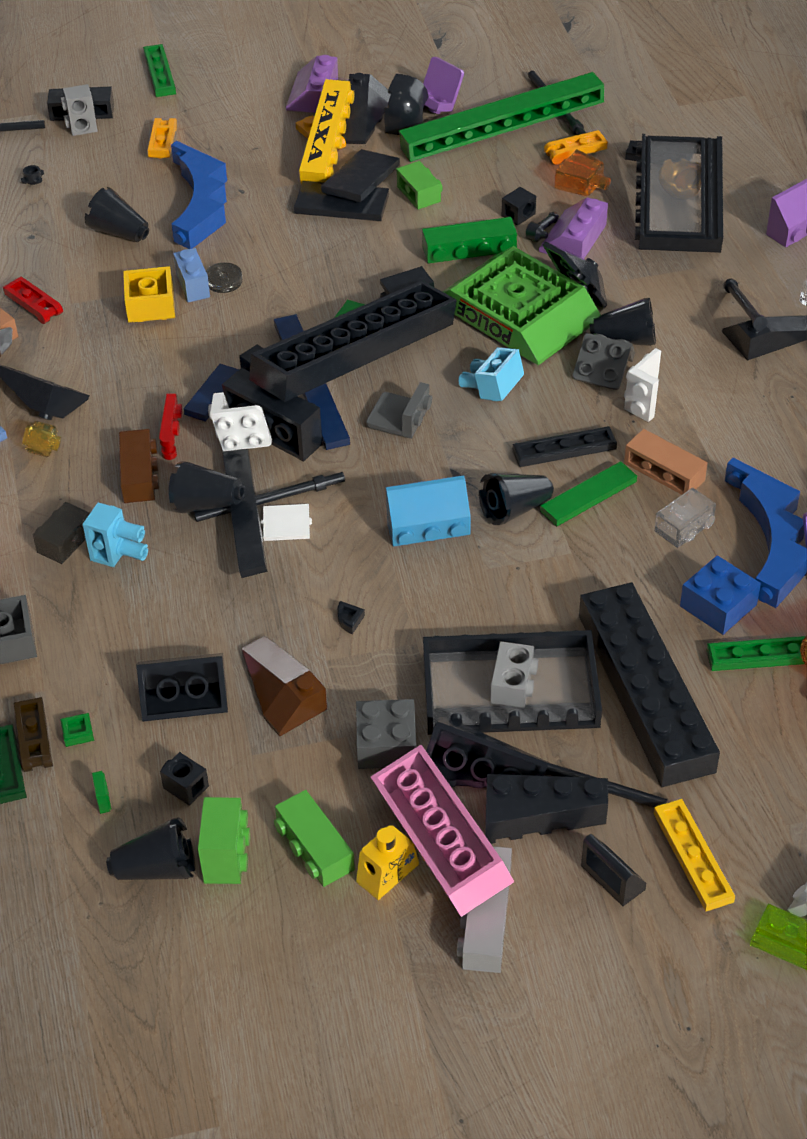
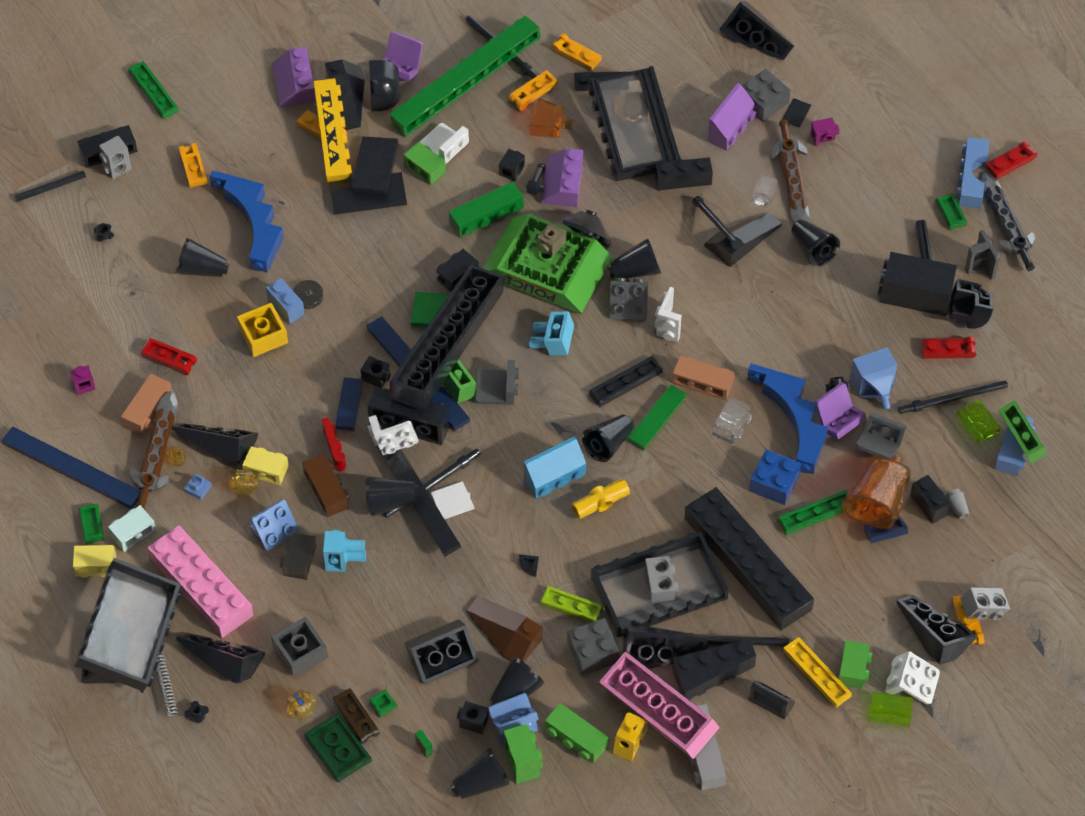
camera: 20 degrees left, 10 degrees up
(49, 488) = (274, 525): none -> medium blue bracket
(79, 428) = (266, 465): none -> light yellow brick
(238, 781) = (511, 714): none -> medium blue bracket
(255, 753) = (515, 681): none -> black cone
(352, 395) = (460, 383): none -> bright green brick
(381, 676) = (571, 605): none -> lime tile
(456, 171) = (446, 141): none -> white bracket
(474, 563) = (600, 498): none -> yellow piece
(528, 271) = (551, 239): none -> dark tan brick
(638, 122) = (576, 52): none -> light orange plate
(722, 253) = (683, 173): none -> black brick
(752, 857) = (853, 666): none -> bright green brick

